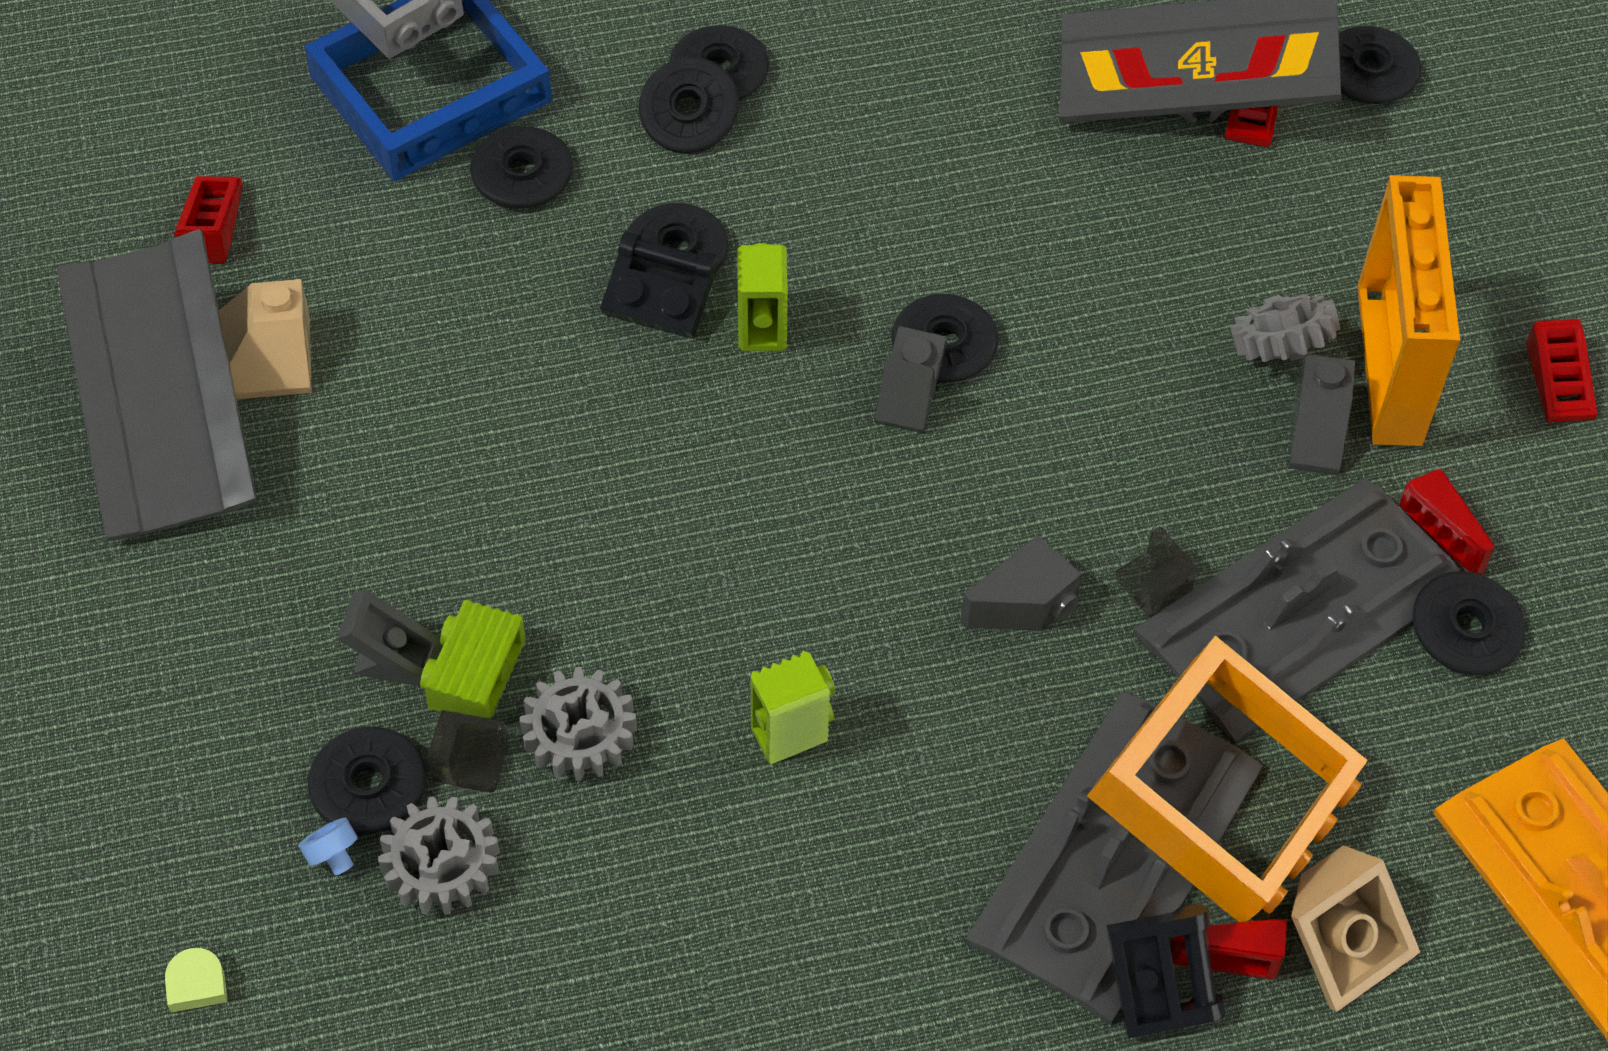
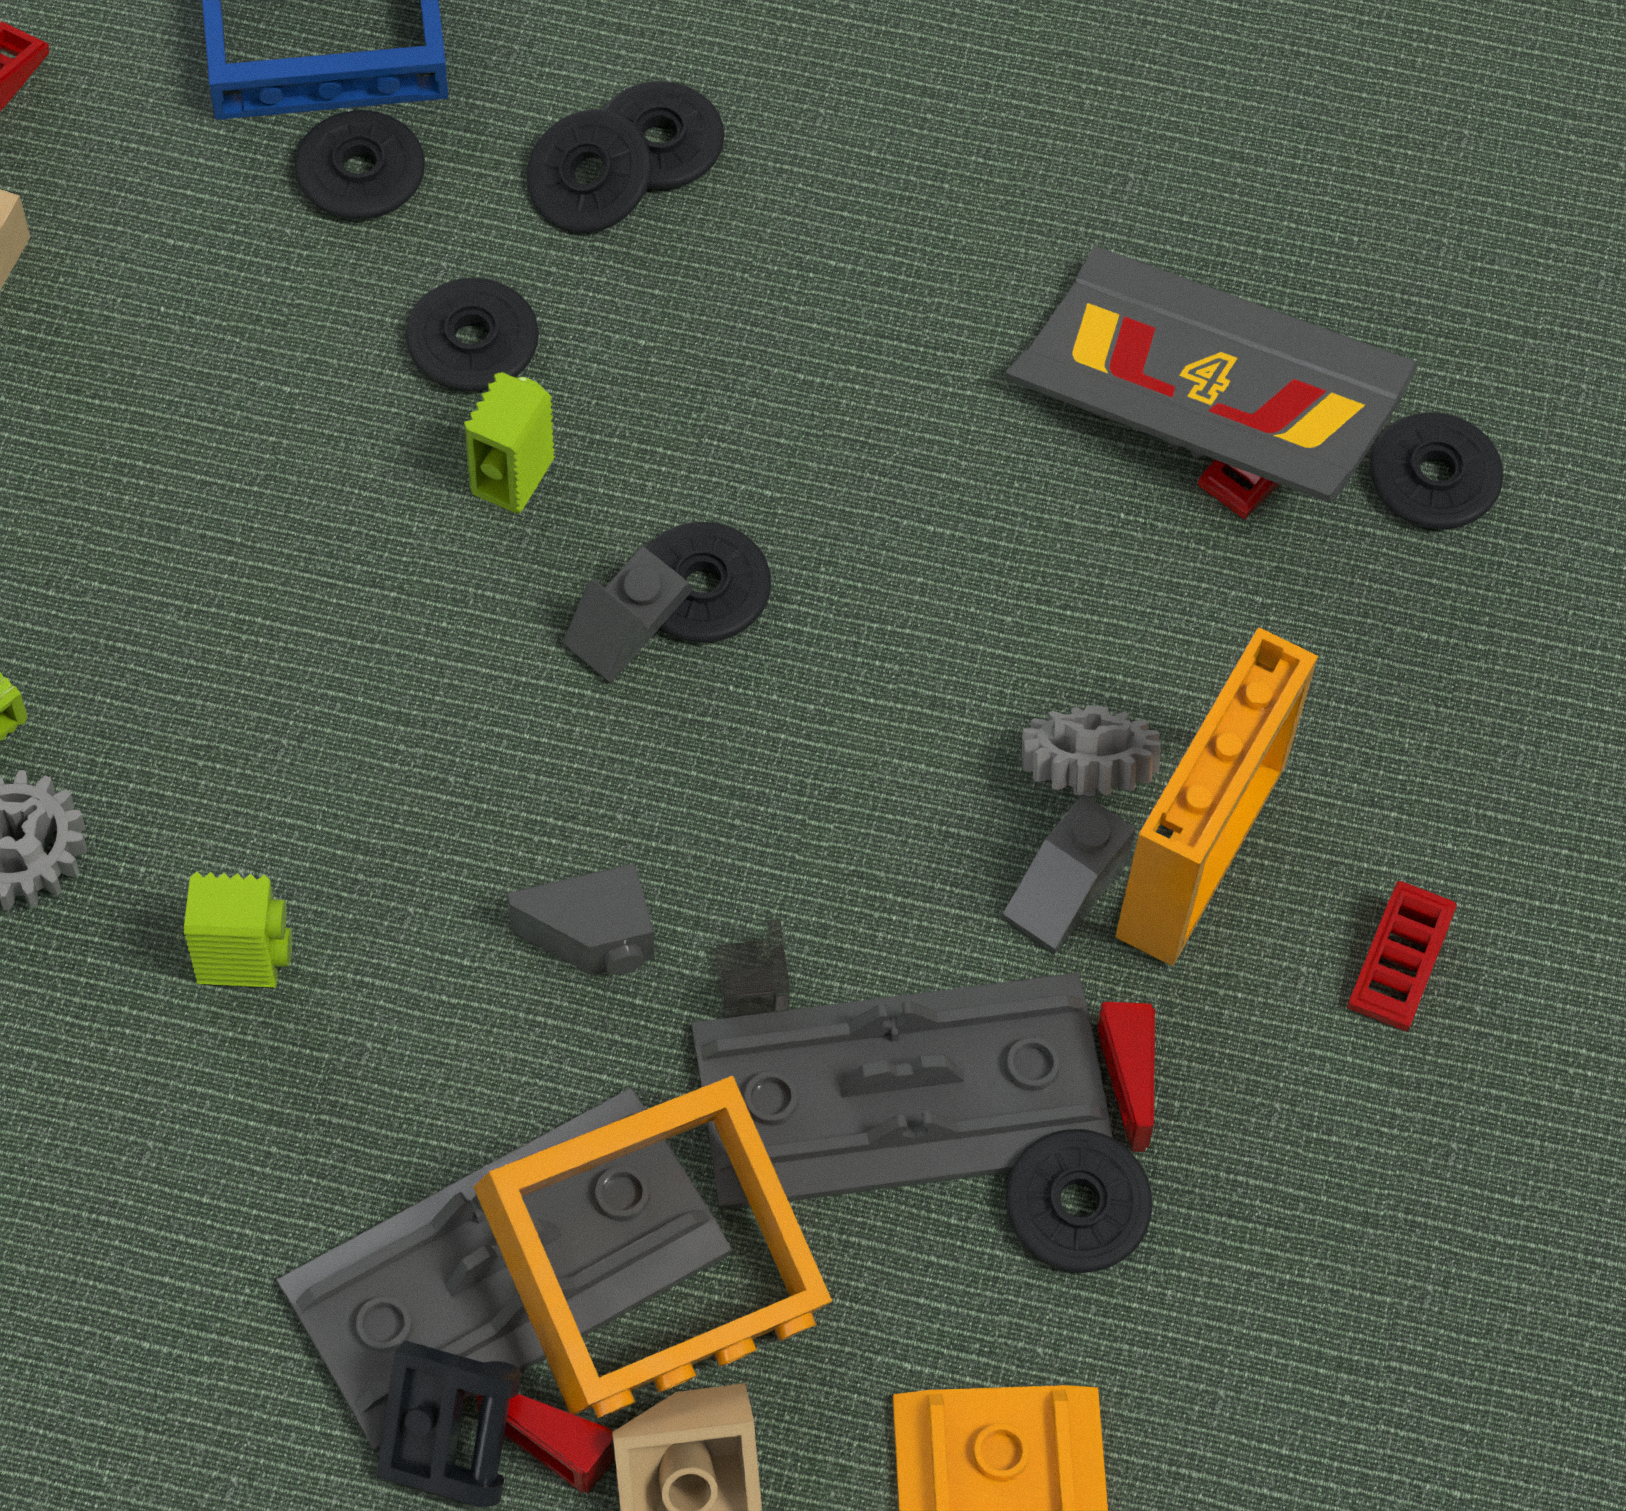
camera: 25 degrees right, 5 degrees up
(656, 299) = (404, 388): black plate -> none

